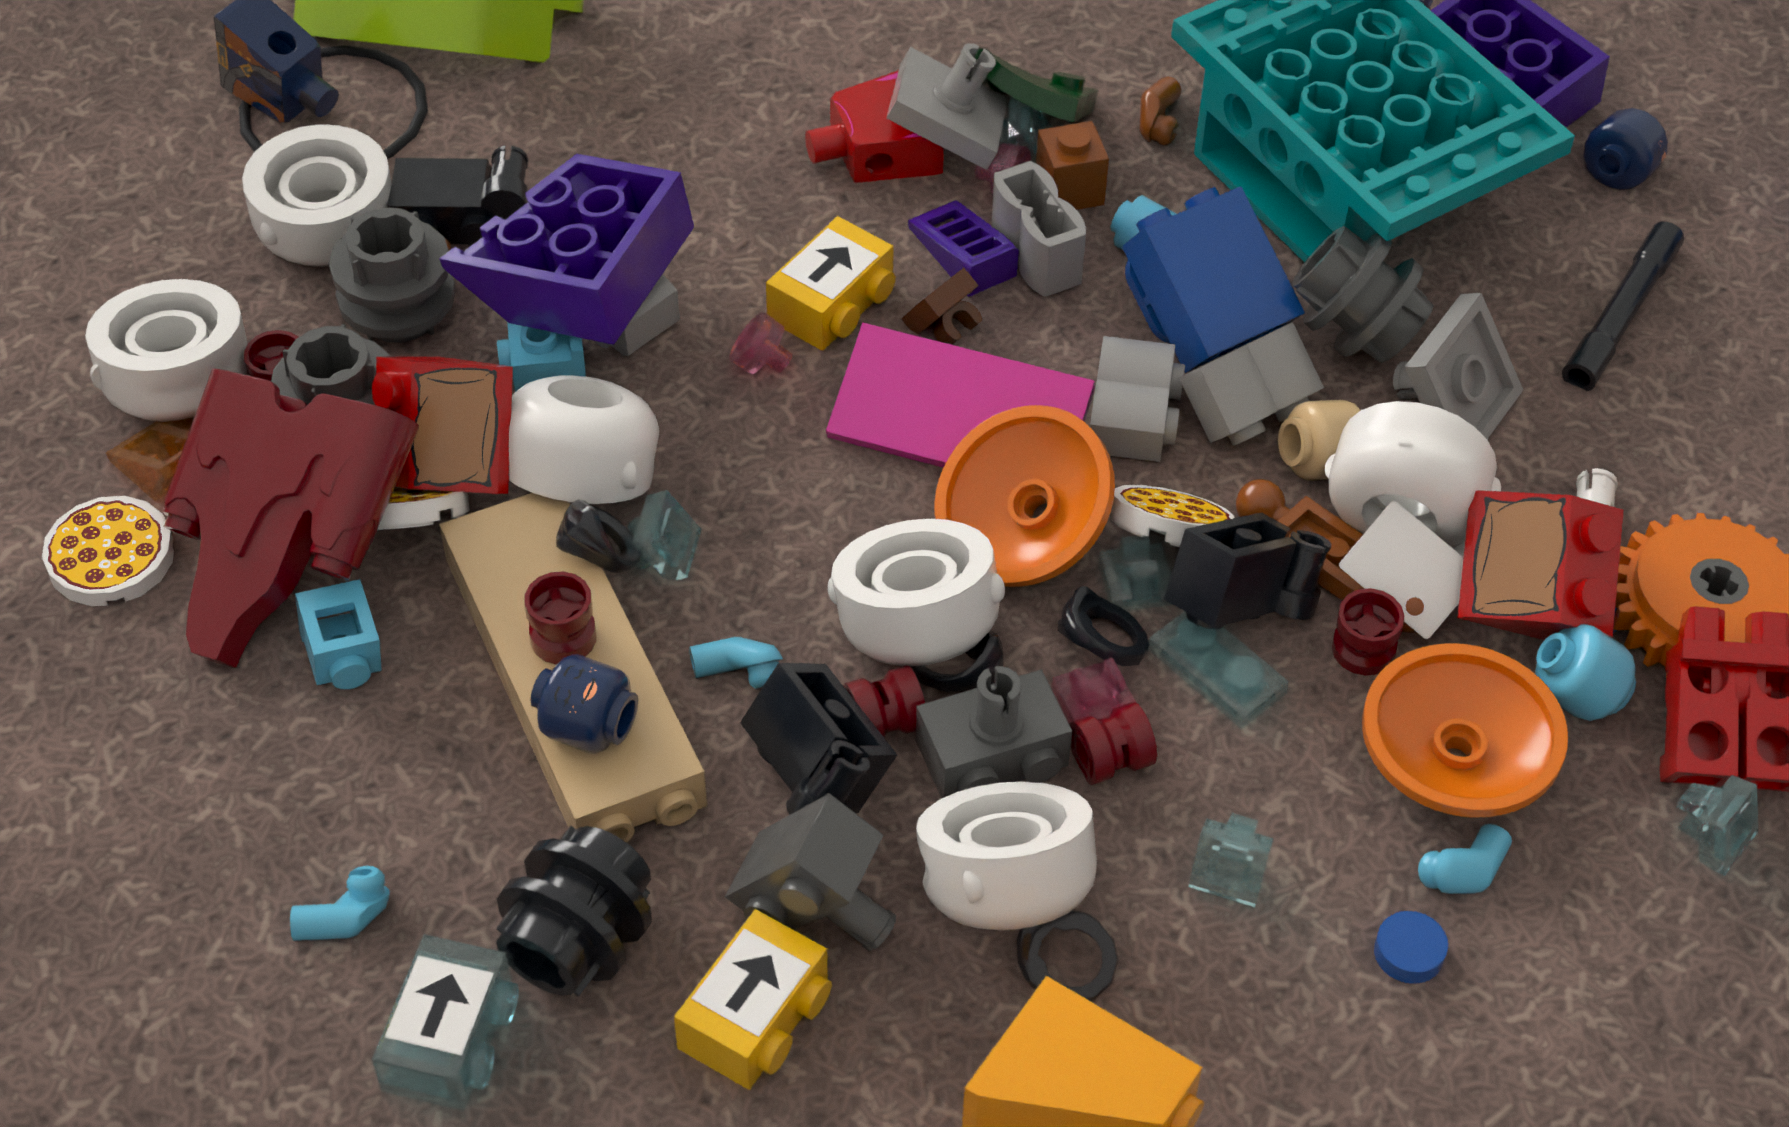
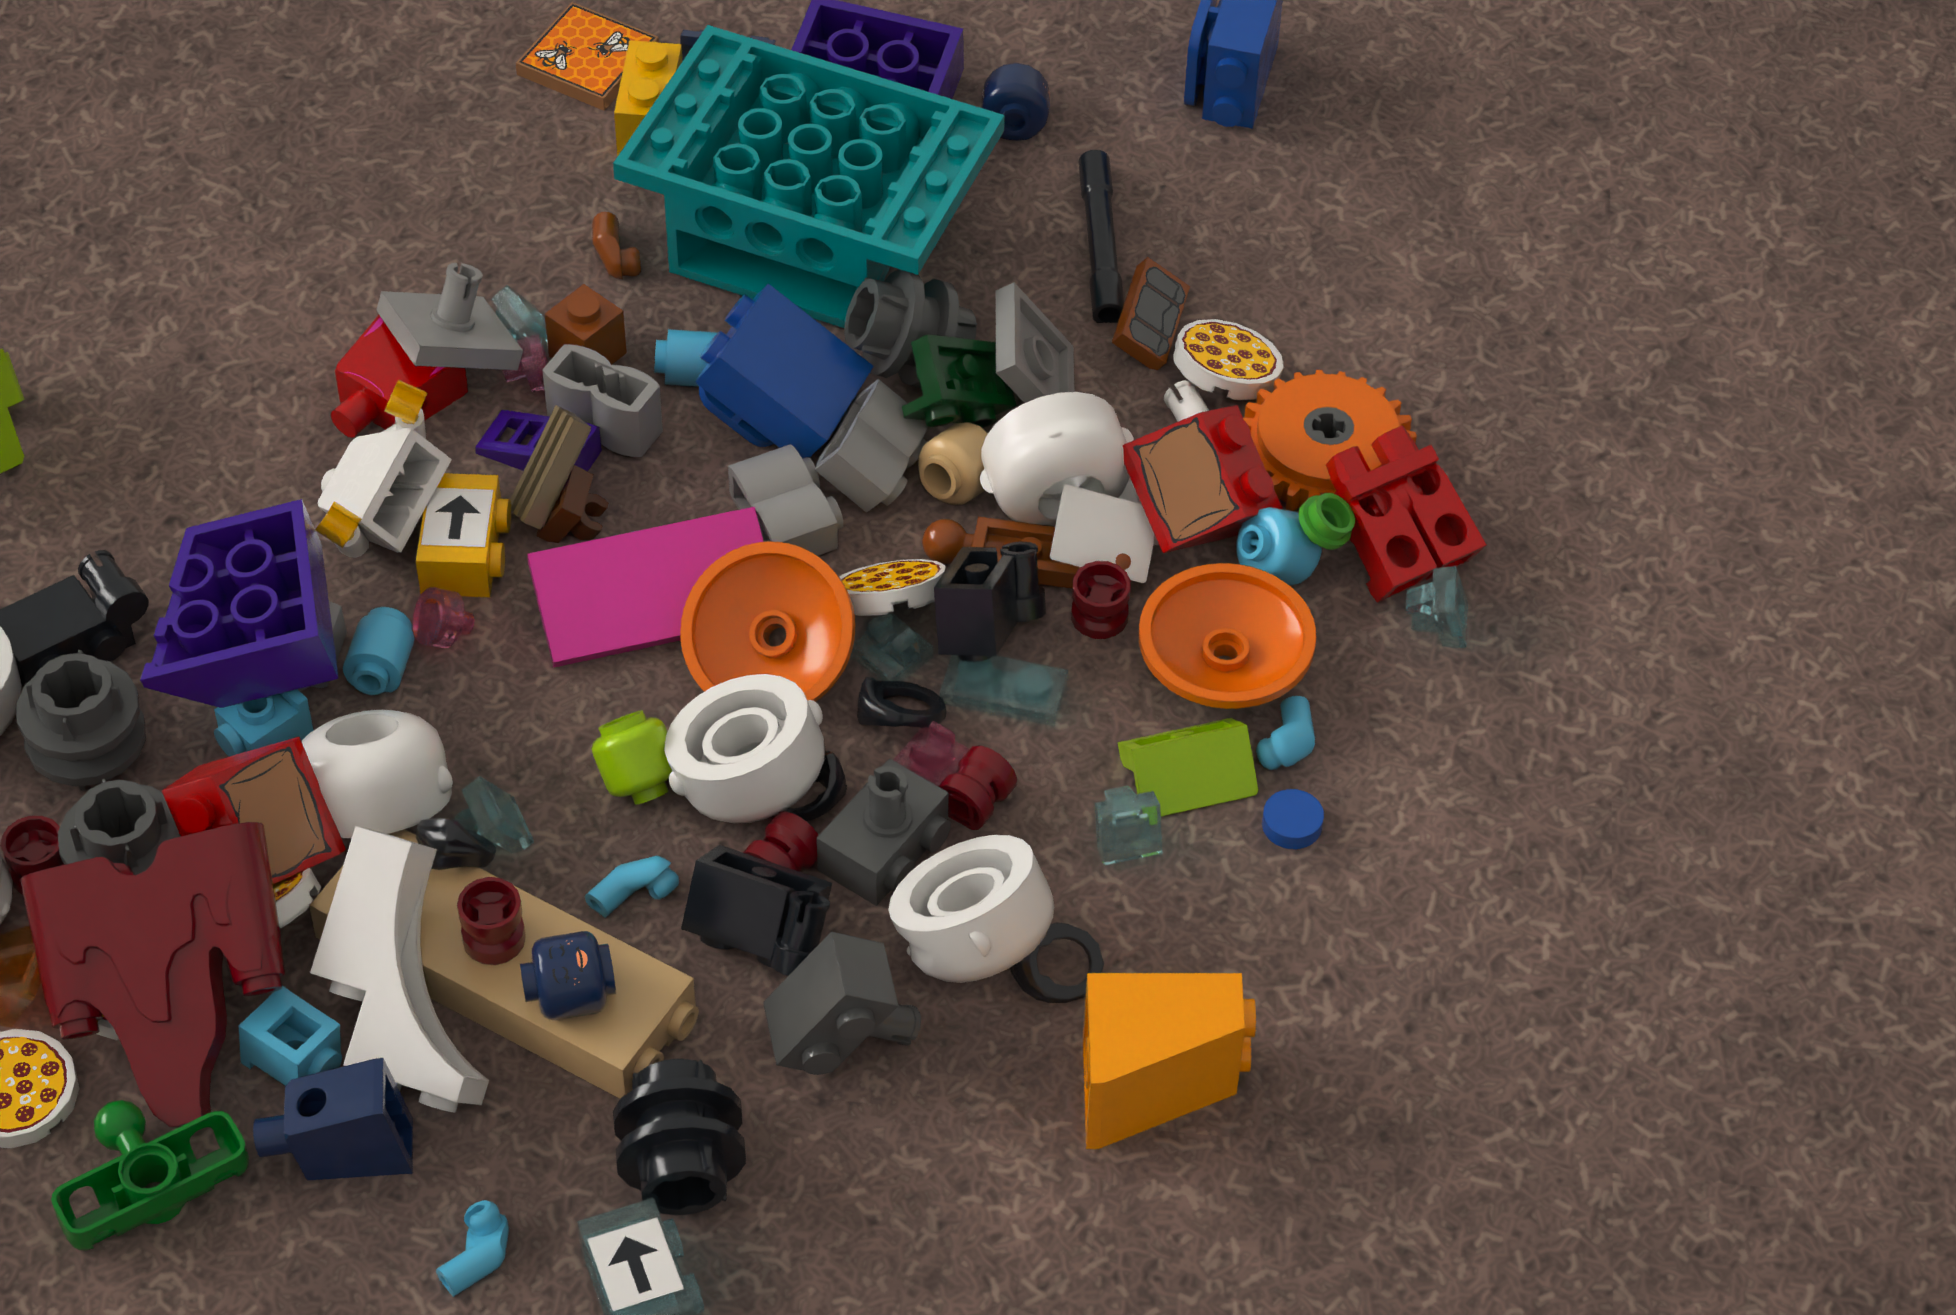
camera: 35 degrees left, 0 degrees up
(133, 685) = (165, 1160): none -> green piece
(307, 725) = (342, 1124): none -> dark blue torso
(445, 599) = (376, 958): none -> white arch
(686, 346) = (379, 651): none -> medium azure brick
(753, 1000) = (859, 1126): yellow brick -> none
(786, 204) = (383, 480): none -> white torso
(813, 542) = (633, 757): none -> lime head
(942, 260) = (549, 467): none -> dark tan tile
(1060, 97) = (524, 275): dark green plate -> none
(1342, 839) = (1193, 765): none -> lime panel
(1362, 356) = (957, 382): none -> dark green bracket
(1619, 395) = (1151, 314): none -> tile
(1644, 669) = (1327, 520): none -> bright green plate
(1666, 470) = (1227, 357): none -> tile

